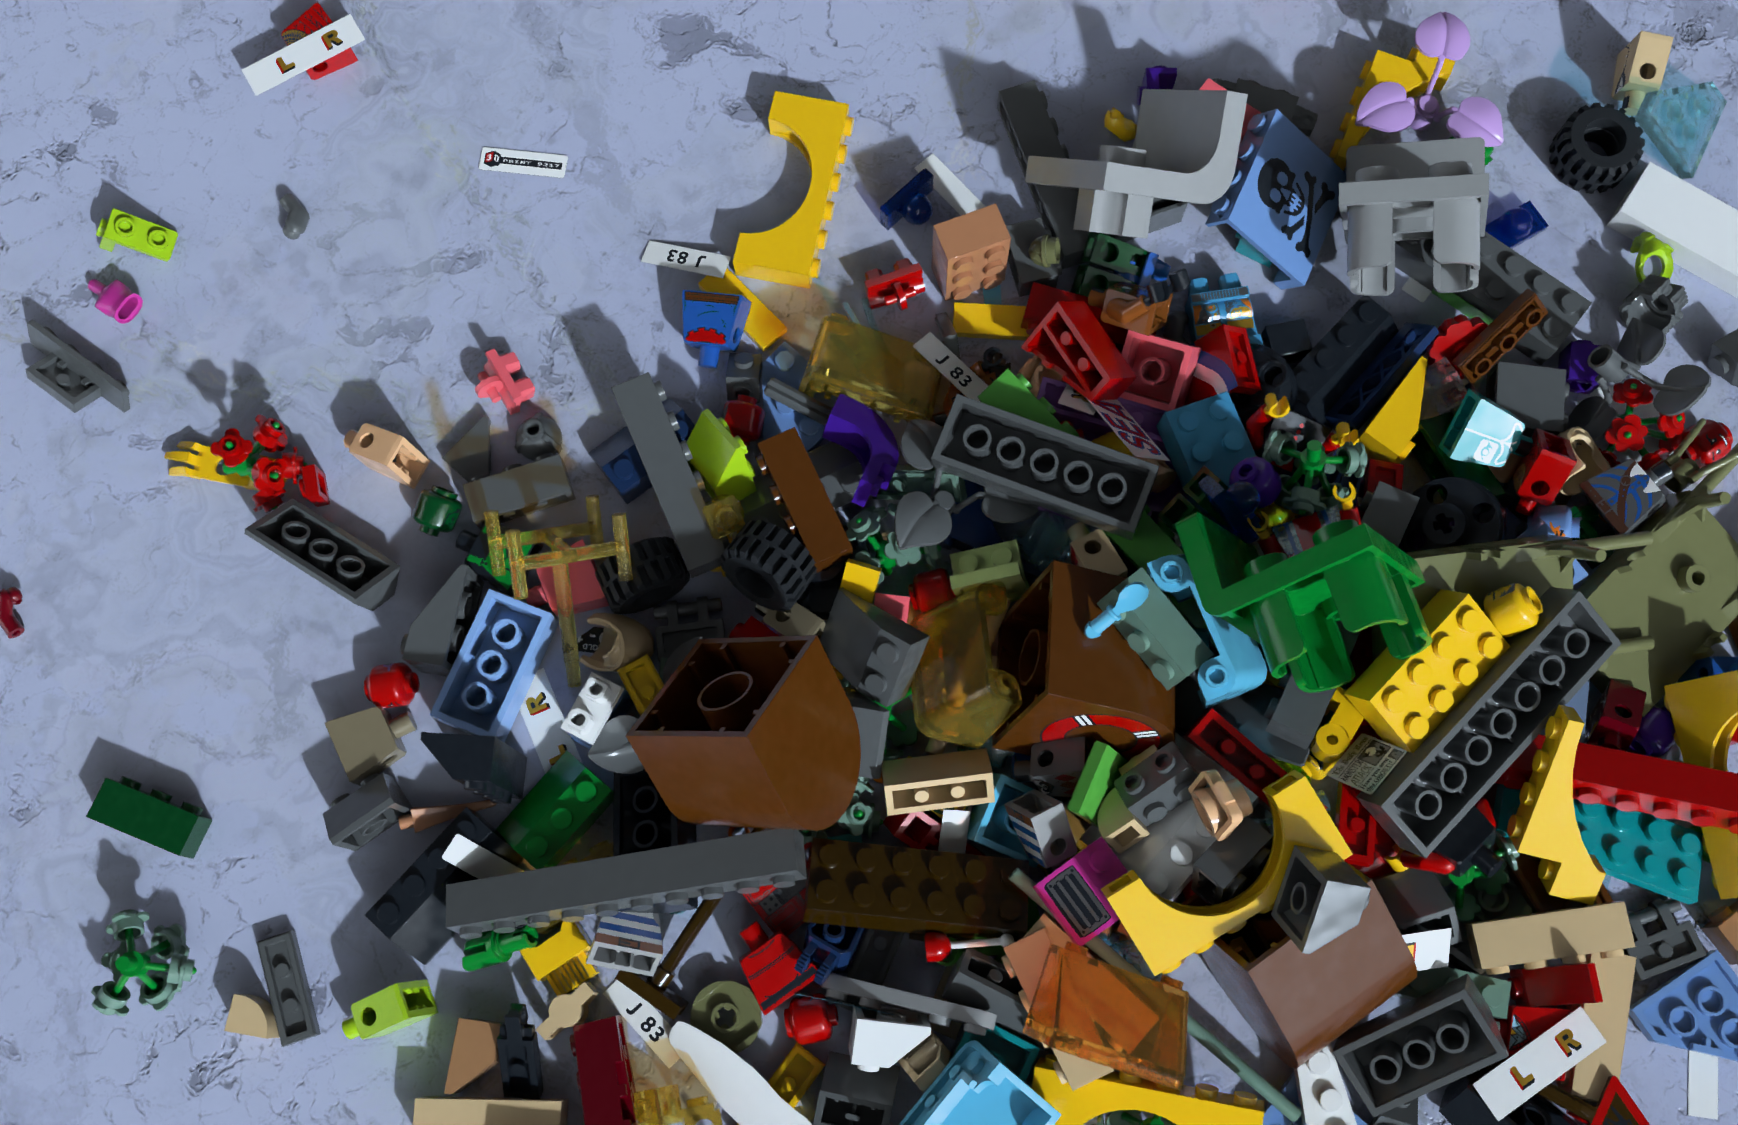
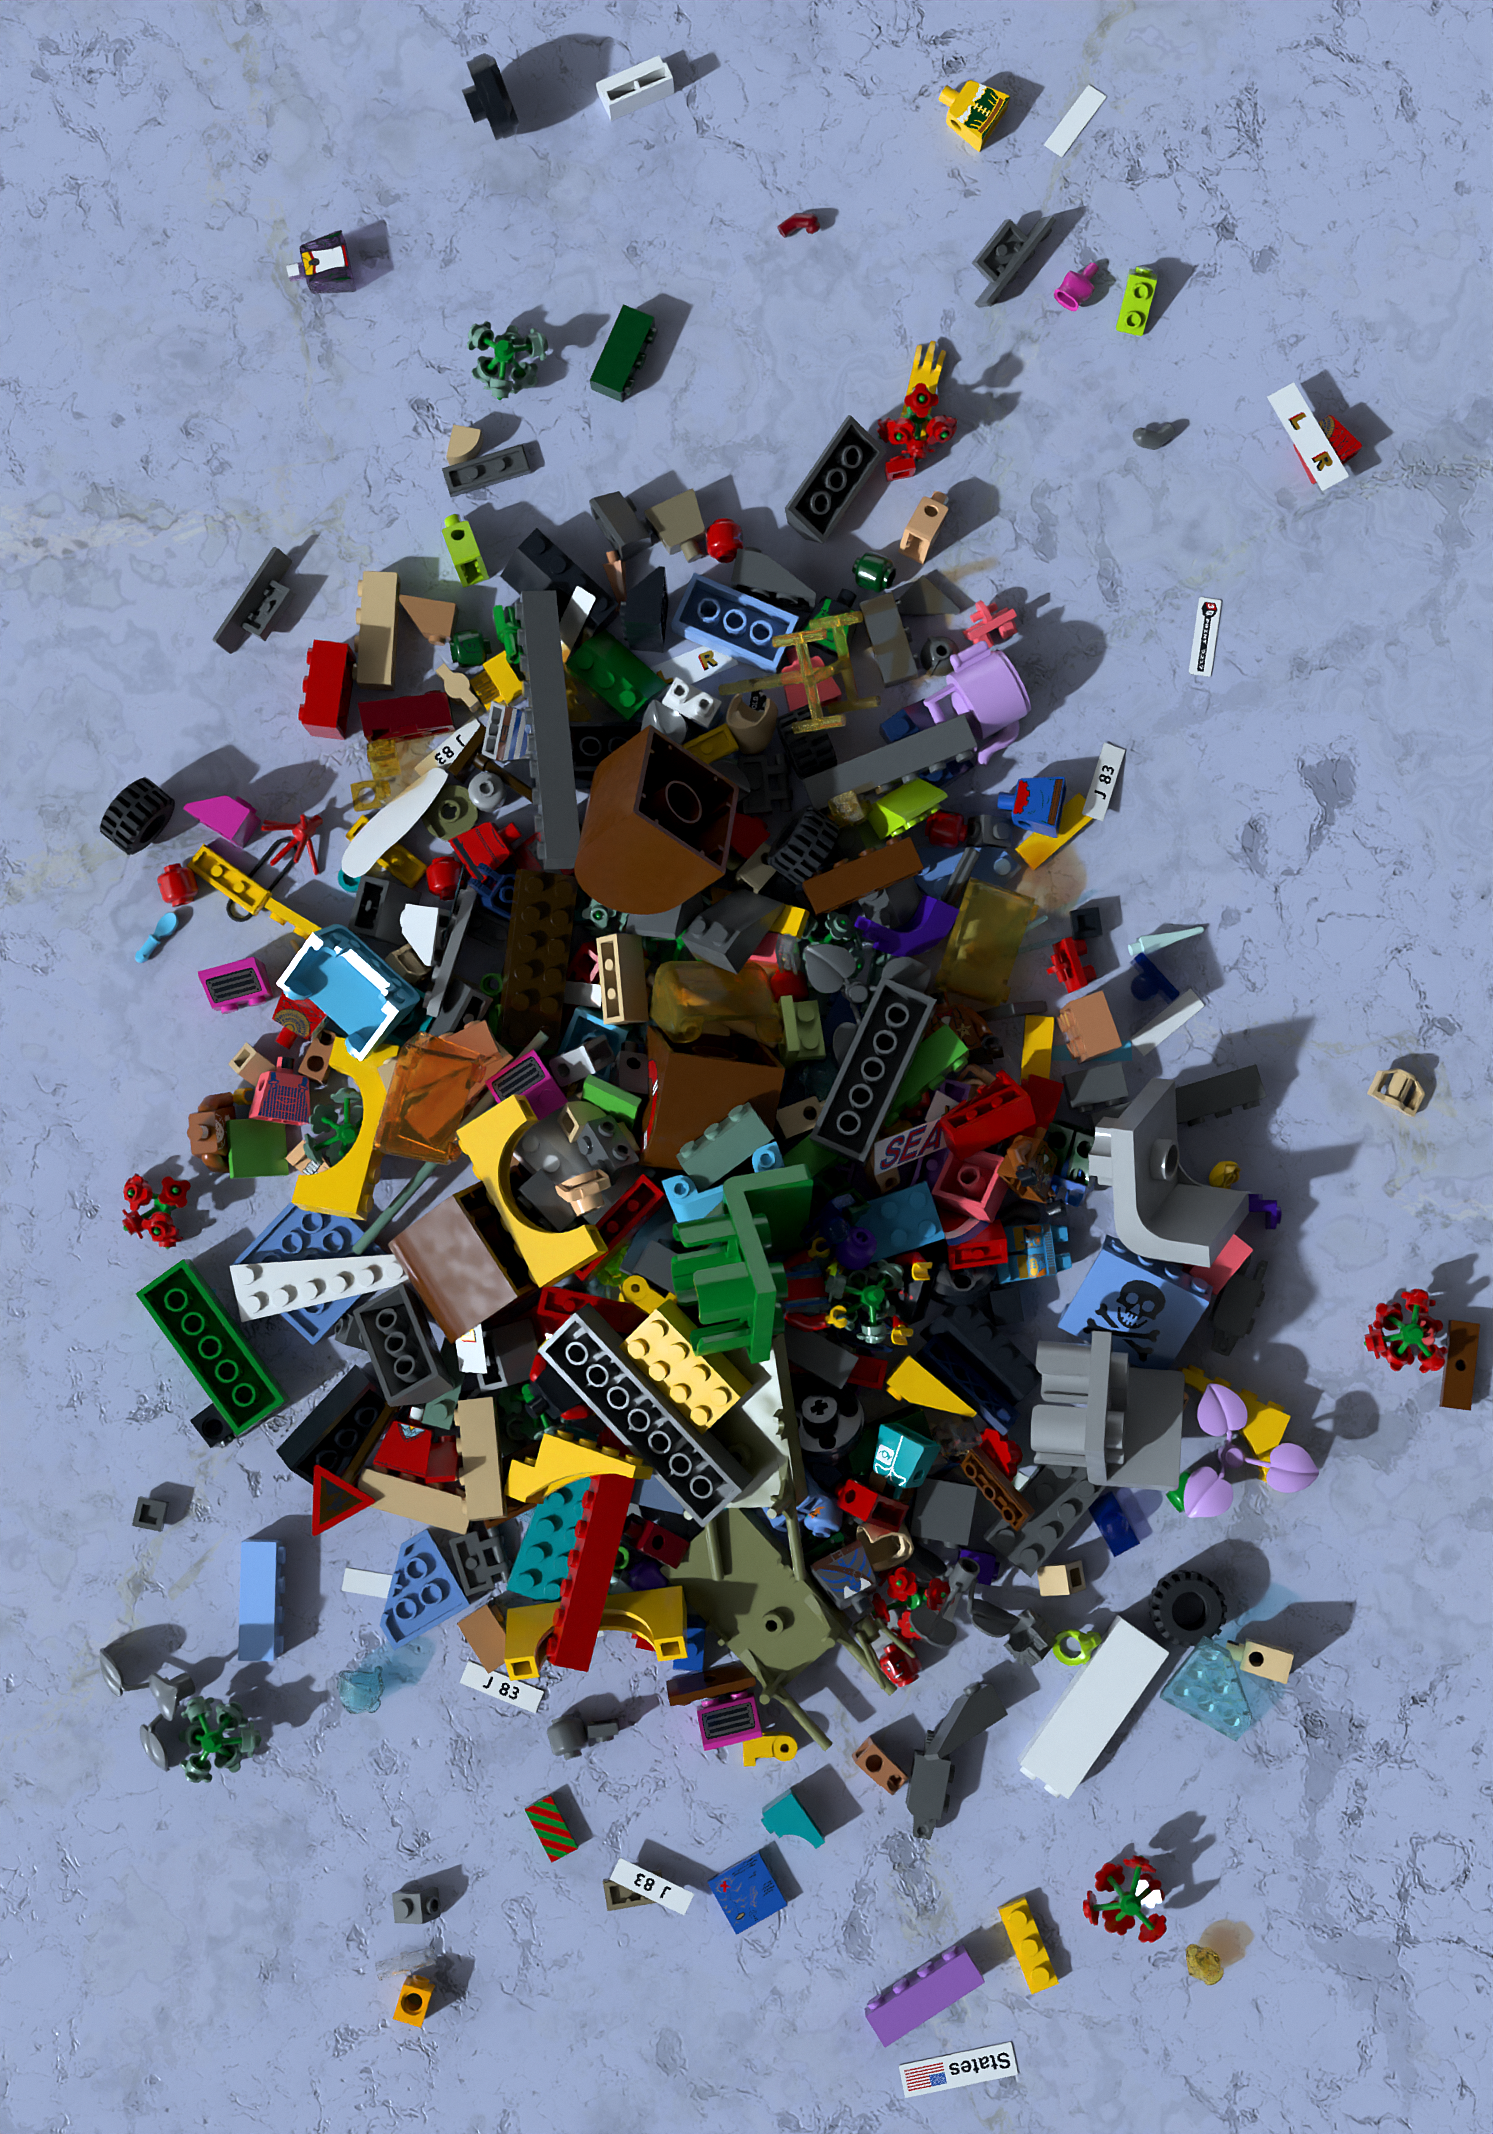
camera: 90 degrees right, 10 degrees up
(516, 989) = (470, 648): none -> dark green head
(519, 1055) = (425, 651): black hinge -> none
(577, 376) = (987, 693): none -> lavender piece
(700, 967) = (487, 792): none -> light grey head
(791, 250) = (1109, 877): yellow arch -> none
(847, 272) = (1085, 923): none -> black plate
(867, 203) = (1150, 943): none -> light aqua piece
(898, 583) = (788, 954): none -> clear piece
(939, 945) = (493, 976): hinge -> none
(950, 366) = (984, 1009): white sticker -> none
(1045, 251) = (1091, 1095): olive plate -> none
(1129, 599) = (742, 1121): medium azure piece -> none
(1319, 898) = (504, 1252): dark grey slope -> none
(1366, 763) = (615, 1315): sticker -> none
(1513, 609) = (731, 1438): yellow head -> none
(1539, 1063) = (386, 1443): white sticker -> none
(1582, 274) = (1061, 1578): none -> tan brick

